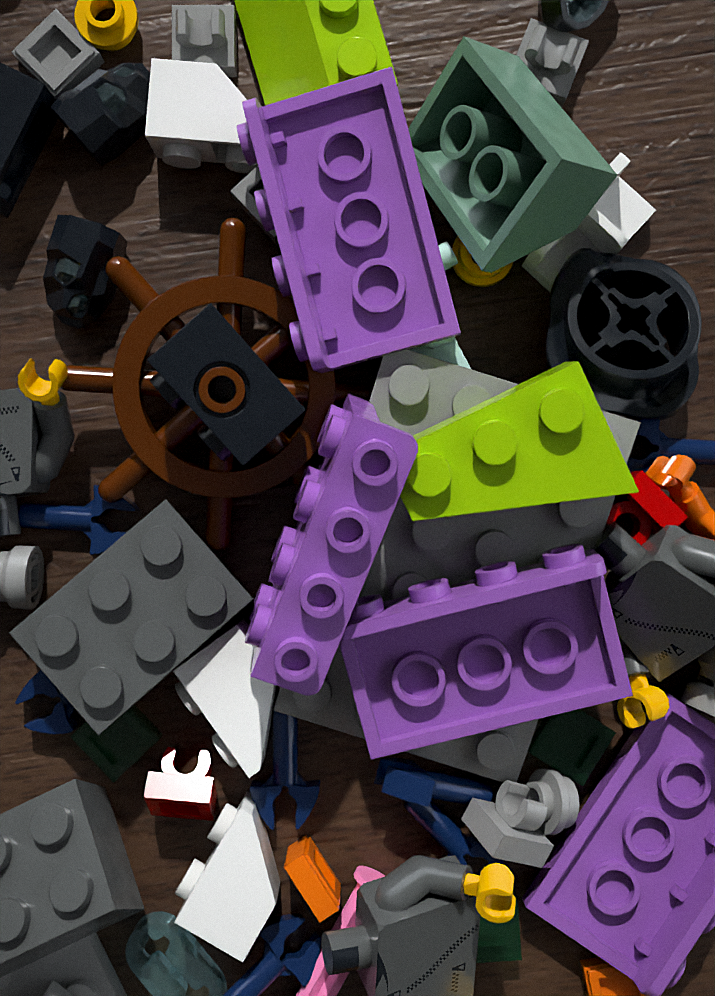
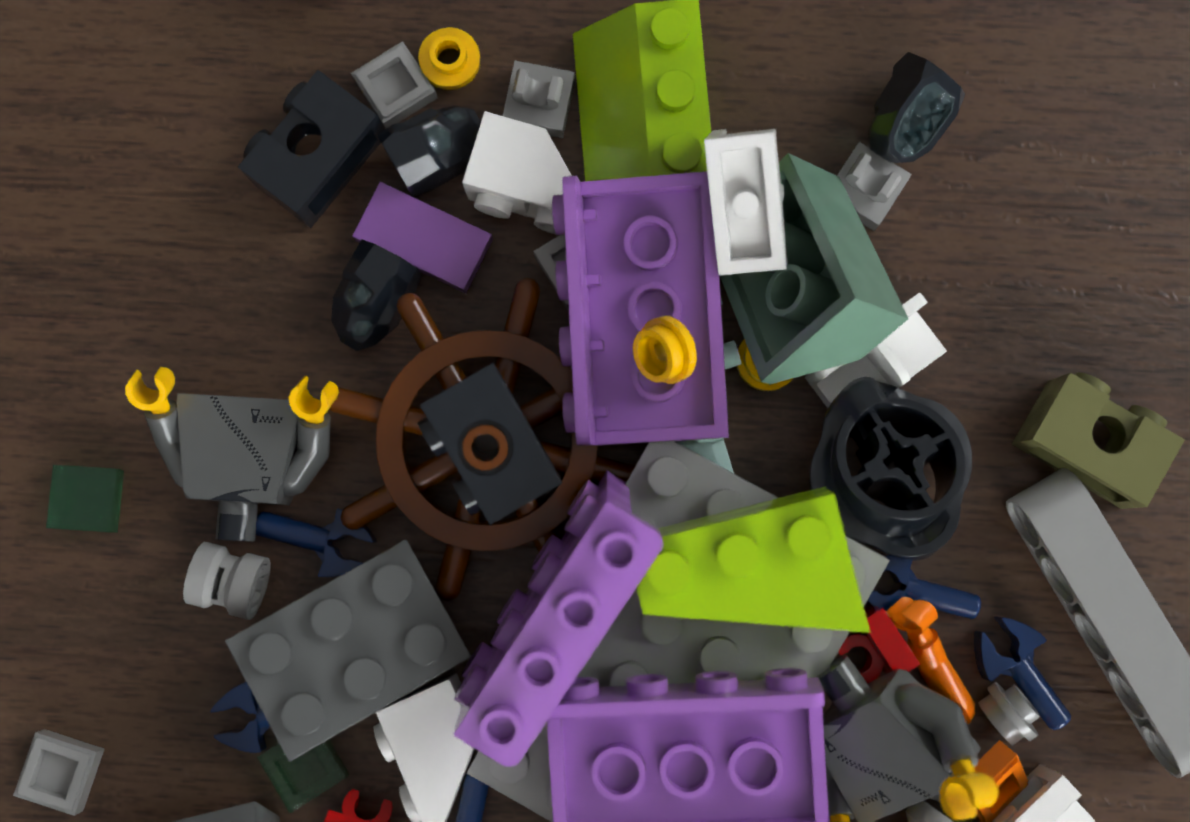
camera: 15 degrees right, 5 degrees down
(125, 201) = (424, 236): none -> medium lavender tile
(381, 257) = (665, 350): none -> yellow plate
(432, 87) = (746, 201): none -> white panel

